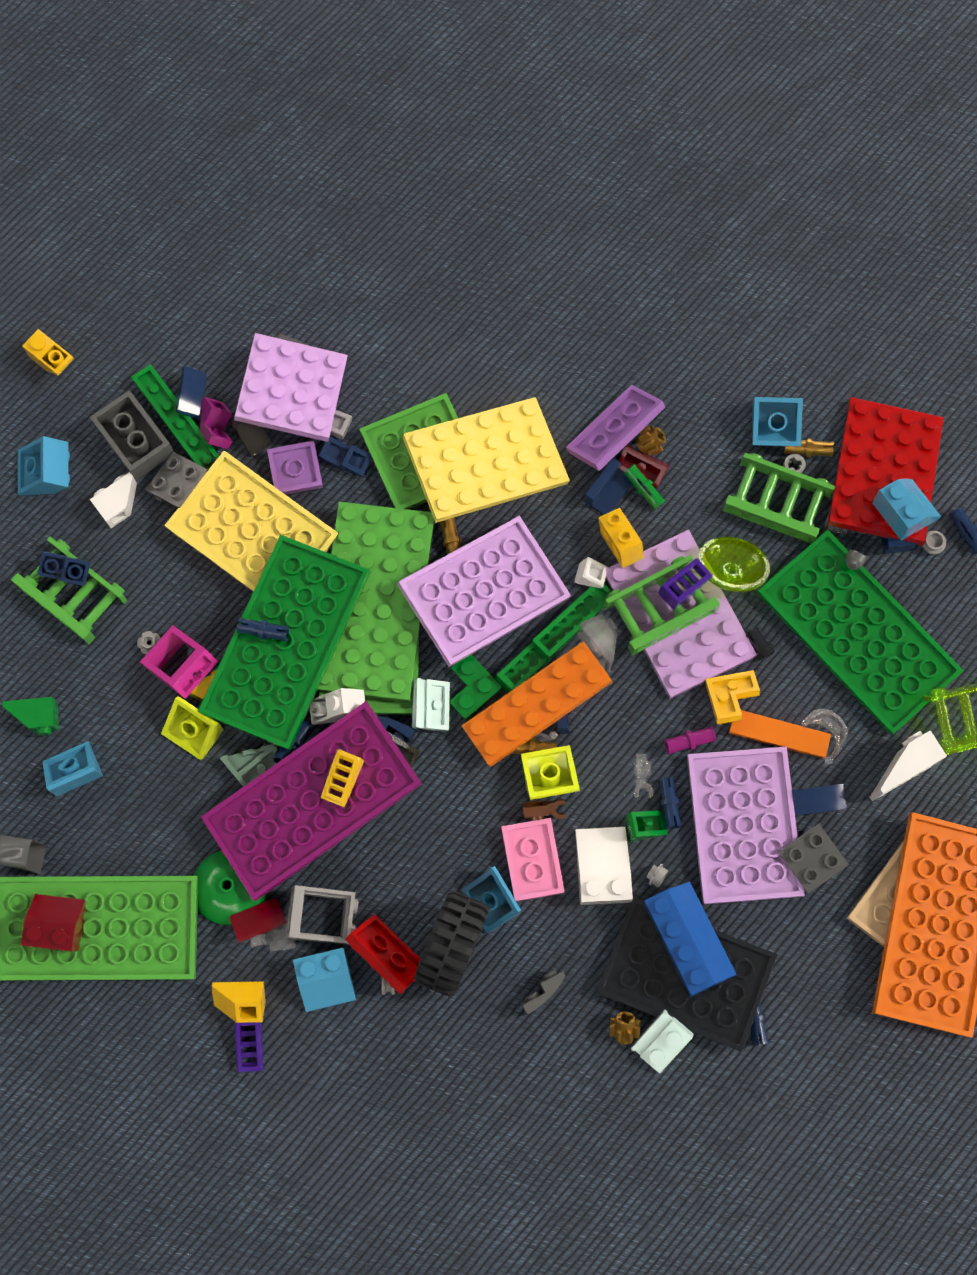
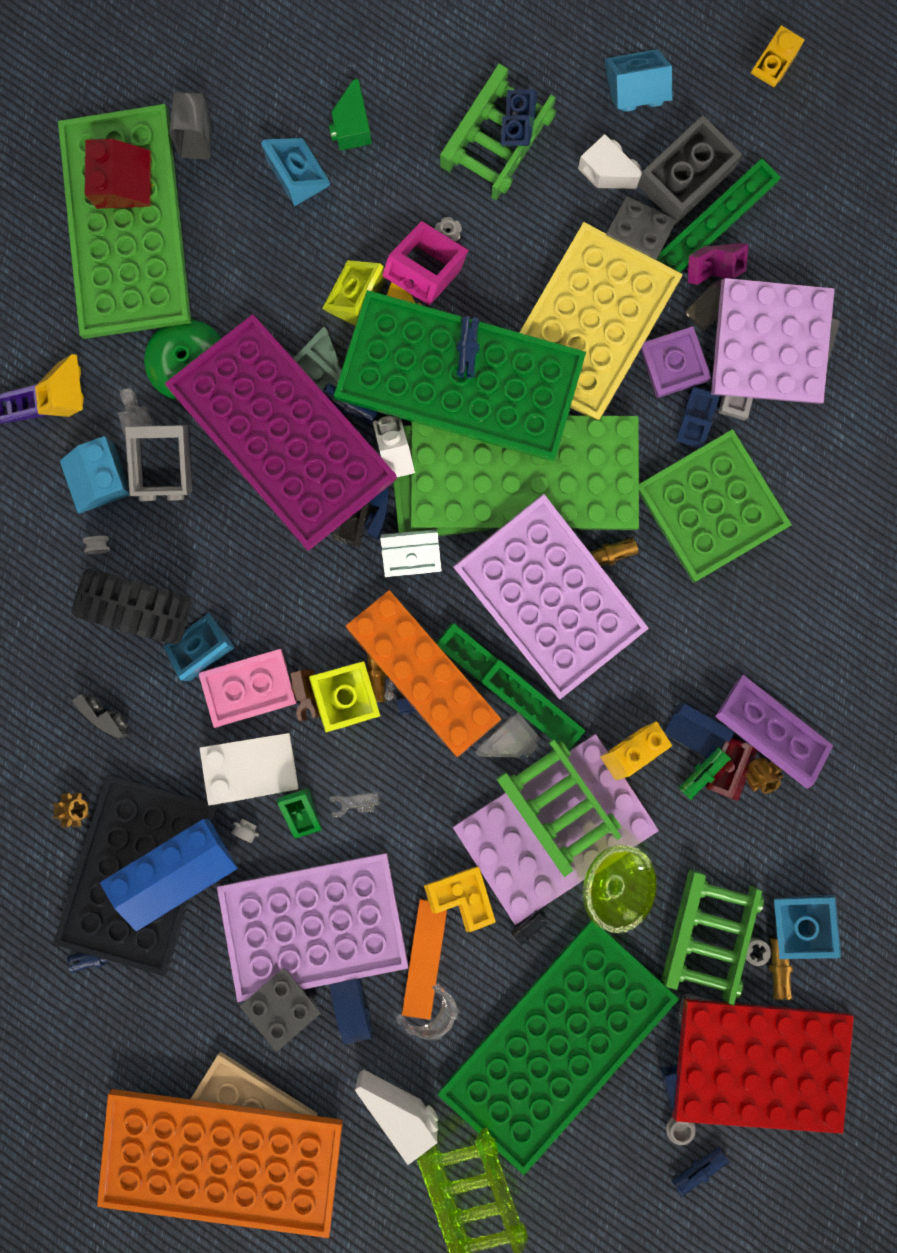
camera: 85 degrees right, 10 degrees up
(191, 392) = (752, 229): dark blue slope -> none
(257, 920) = (149, 394): dark red slope -> none
(333, 775) = (320, 473): yellow slope -> none
(385, 953) = (123, 536): red plate -> none
(478, 690) = (438, 606): green plate -> none
(485, 459) = (714, 580): light yellow plate -> none
(591, 573) = (590, 720): white slope -> none
(662, 1041) = (59, 853): light aqua plate -> none
(669, 803) = (328, 837): dark blue pin -> none
(670, 588) = (566, 814): dark purple slope -> none
(690, 740) = (404, 854): magenta pin -> none
(854, 559) = (642, 1035): dark grey hinge -> none
(905, 507) = (714, 1095): dark azure slope -> none

